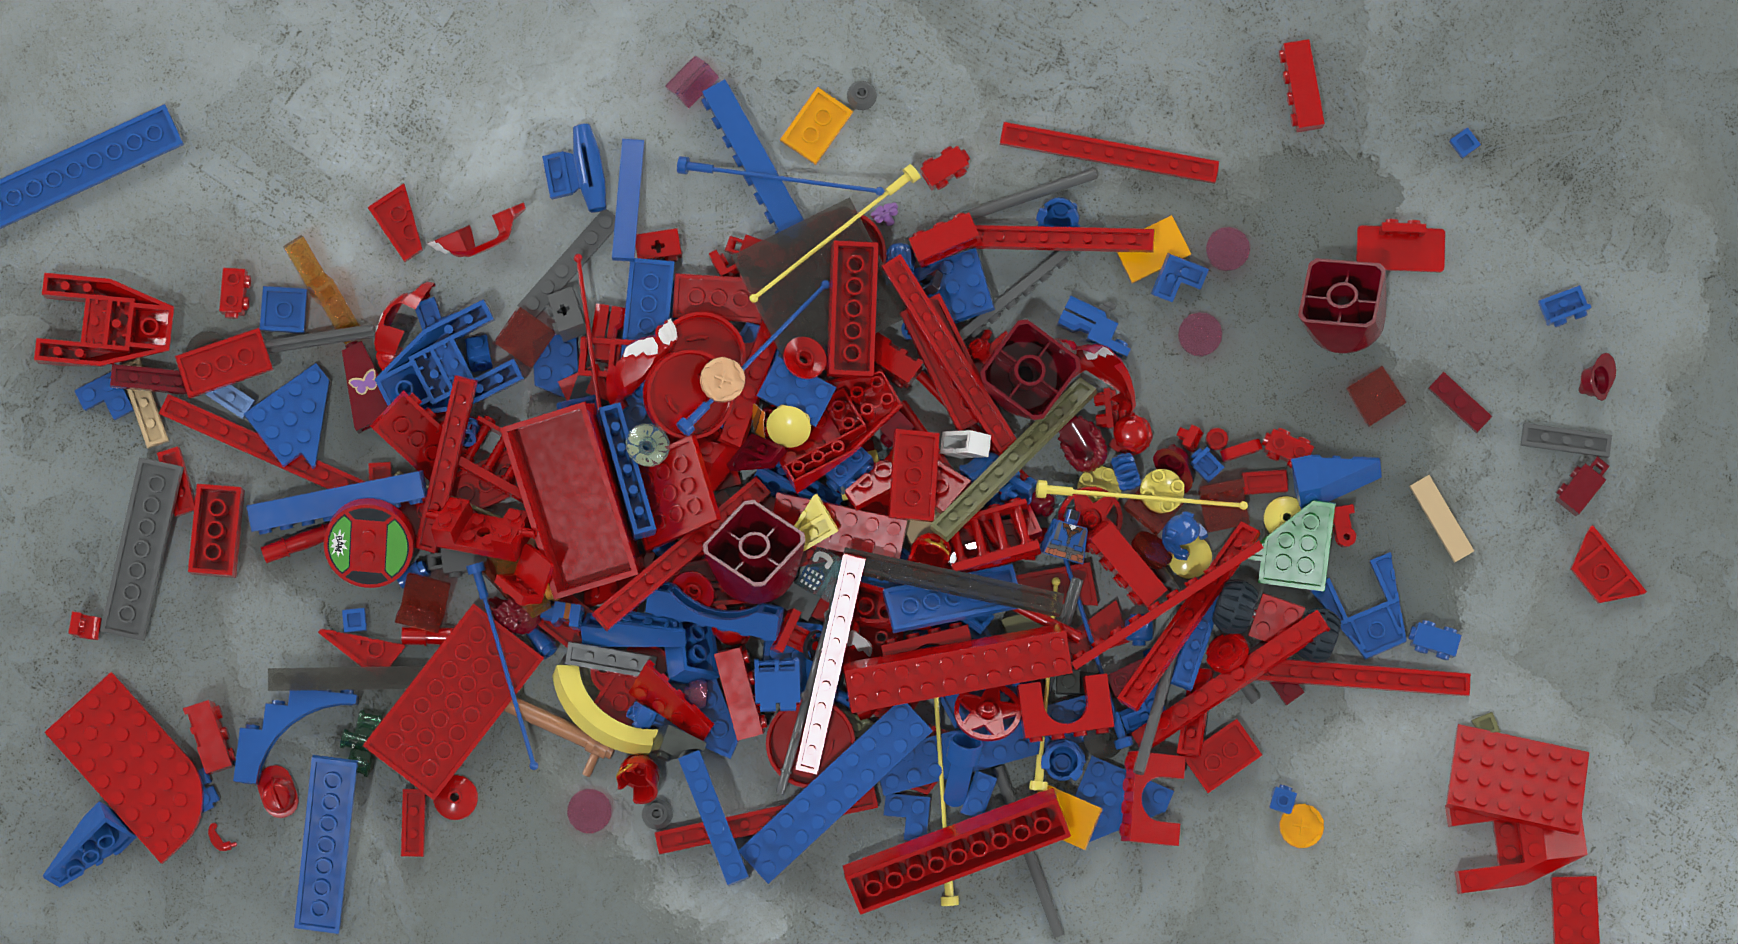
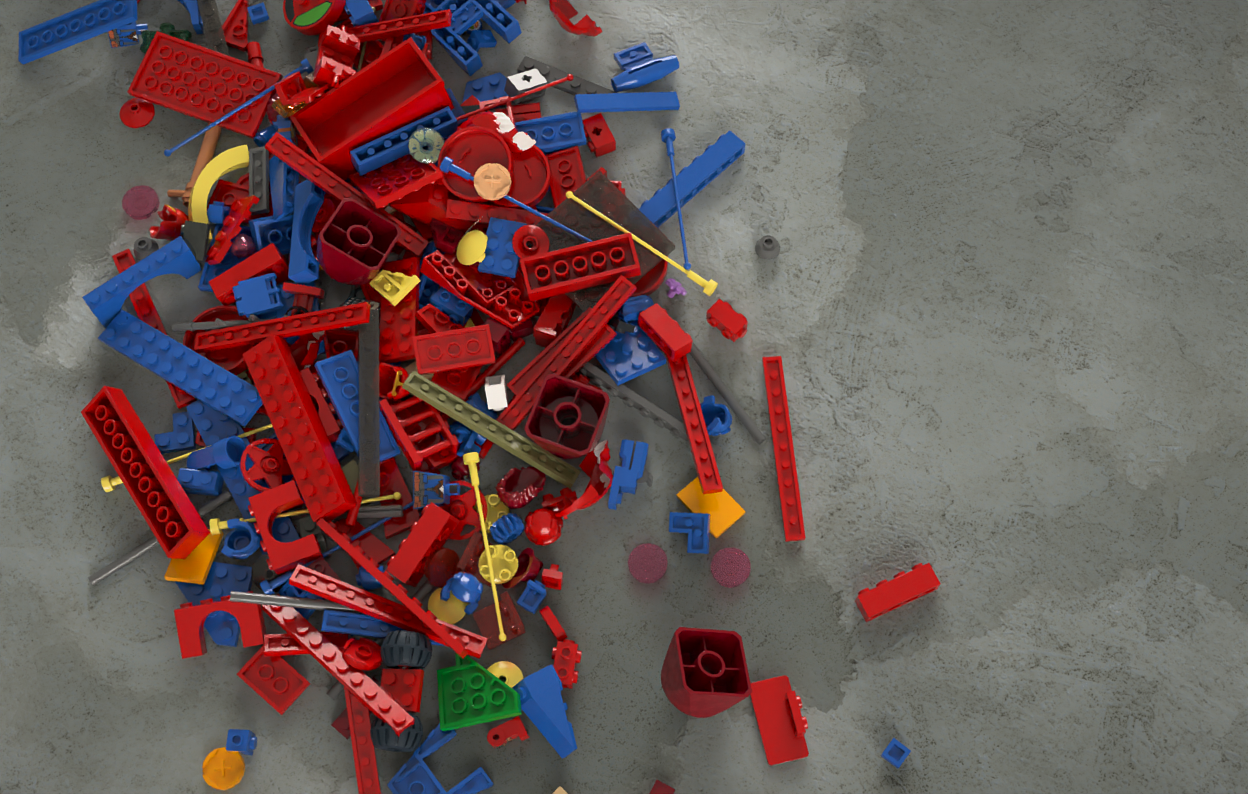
camera: 80 degrees right, 15 degrees down
(413, 823) = (107, 88): red plate -> none
(417, 568) = (301, 41): blue cone -> none
(423, 603) = (278, 52): clear red bracket -> none
(524, 337) = (499, 62): clear red bracket -> none
(691, 81) = (739, 126): clear pink panel -> none
(816, 126) = (731, 222): light orange tile -> none
(1216, 439) = (558, 602): red tile -> none
(1265, 482) = (530, 652): red tile -> none
(1375, 396) = (635, 732): clear red plate -> none

